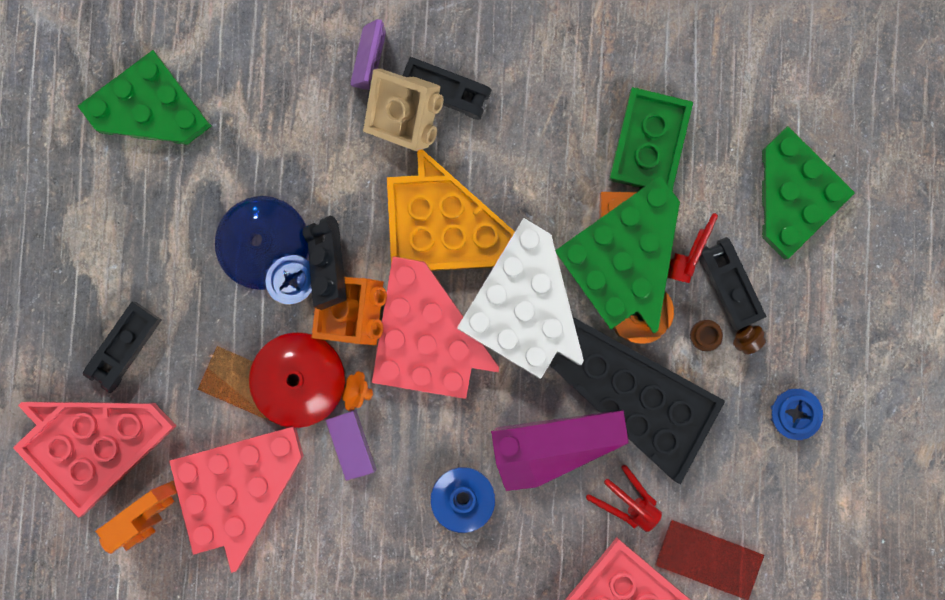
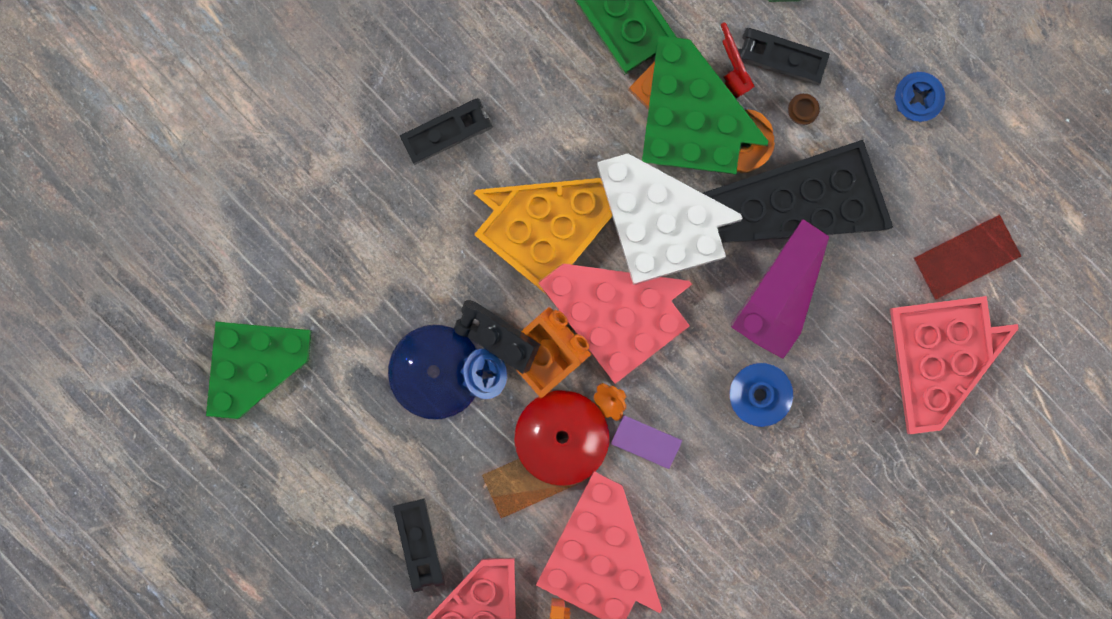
camera: 50 degrees left, 0 degrees up
(368, 54) = (367, 166): medium lavender slope -> none
(402, 109) = (436, 177): tan plate -> none
(642, 512) = (888, 273): red plant -> none
(749, 339) = (835, 80): reddish brown plate -> none

